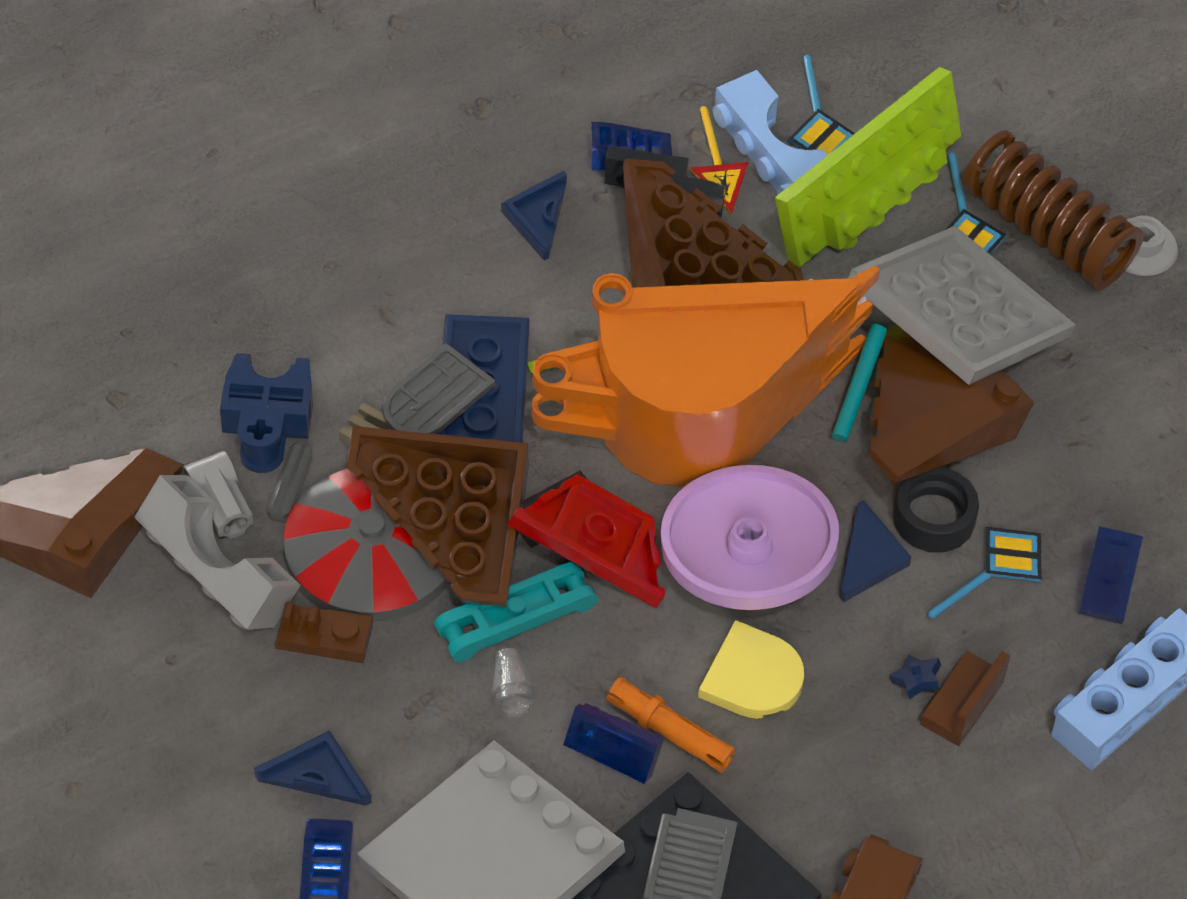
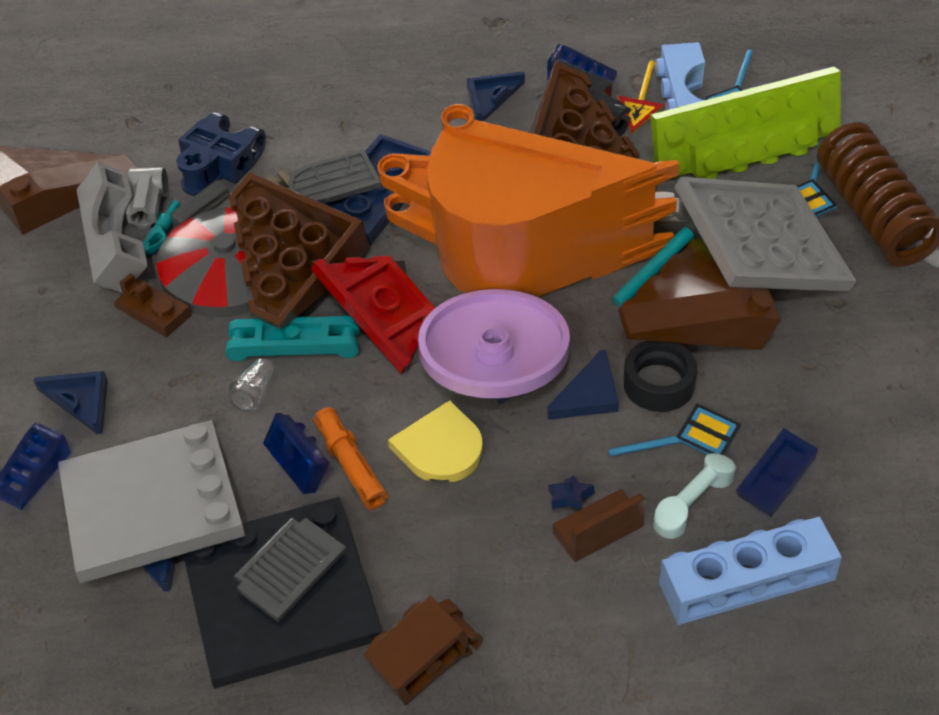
camera: 30 degrees right, 5 degrees down
(263, 527) = (158, 233): none -> teal hand
(1032, 656) = (672, 512): none -> light aqua bar

